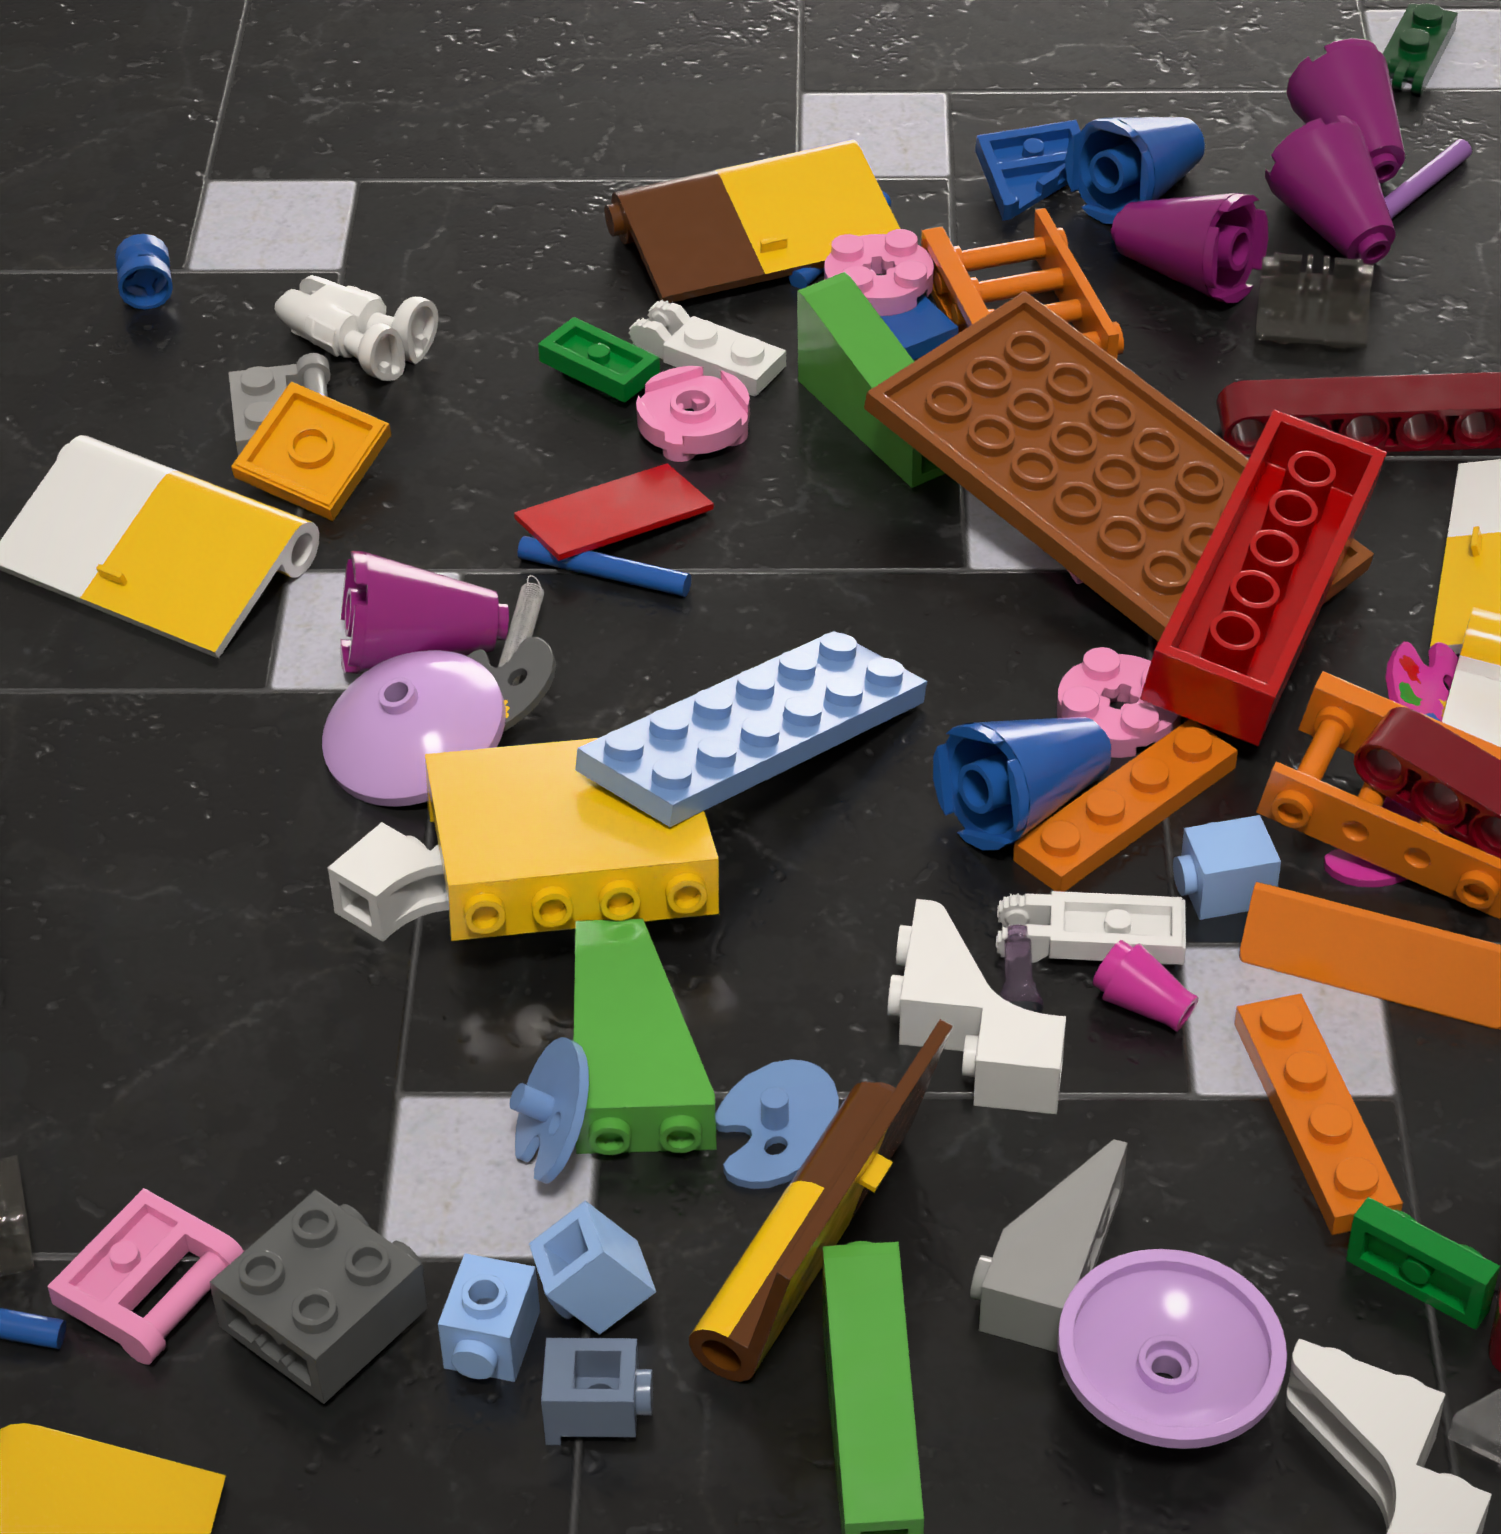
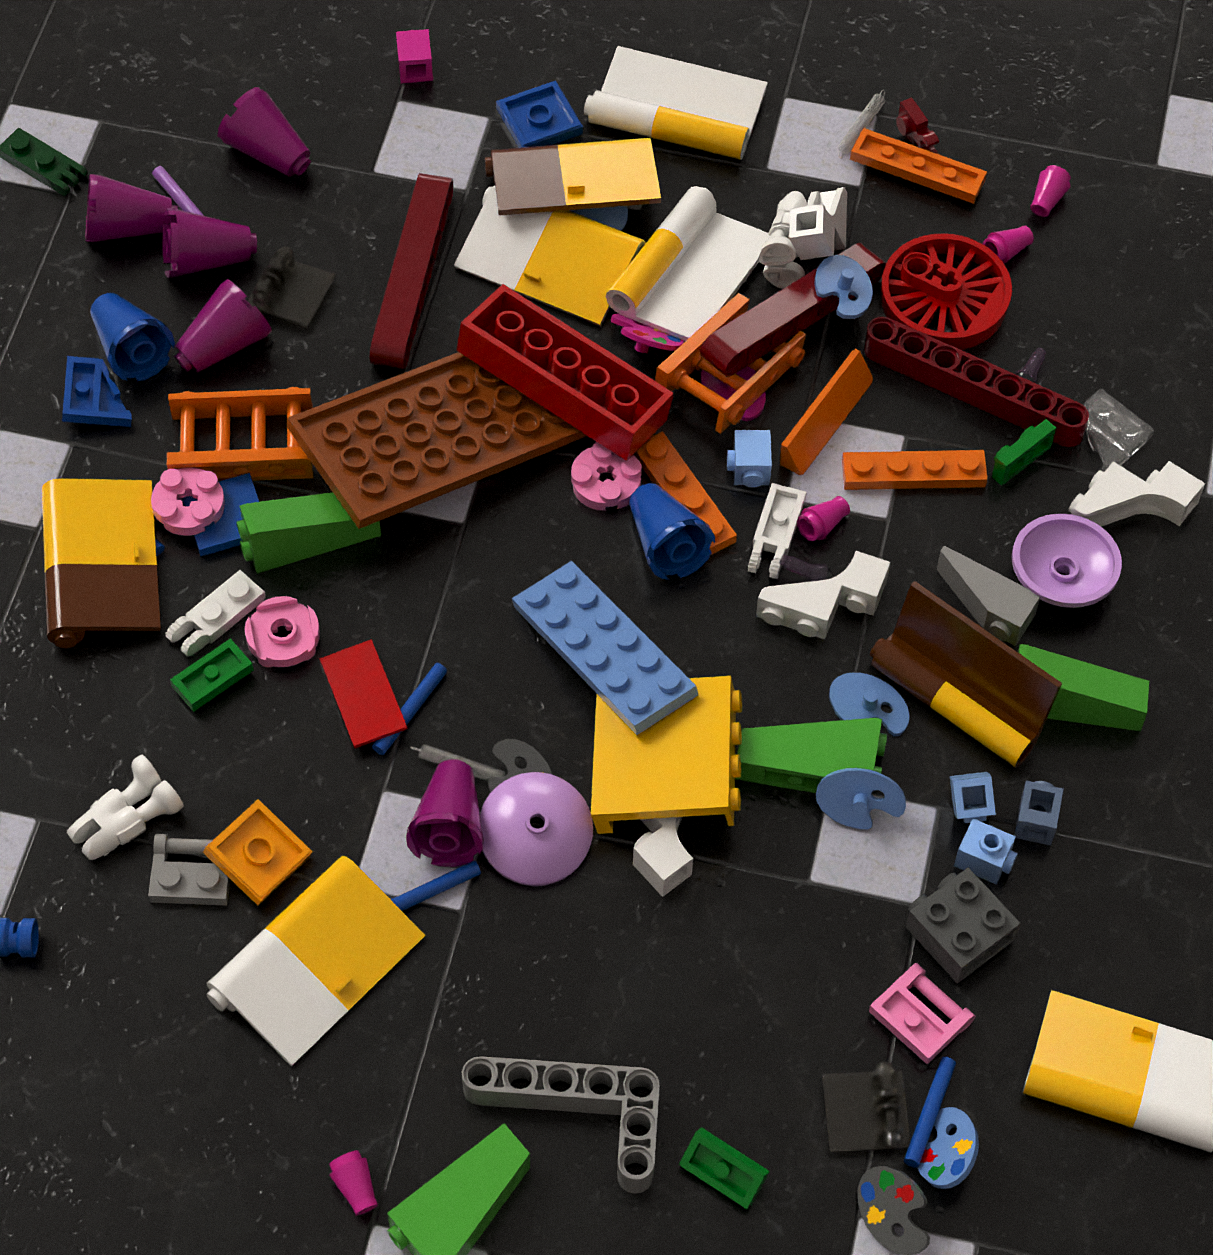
camera: 80 degrees left, 15 degrees up
(299, 648) = (437, 886): none -> blue bar

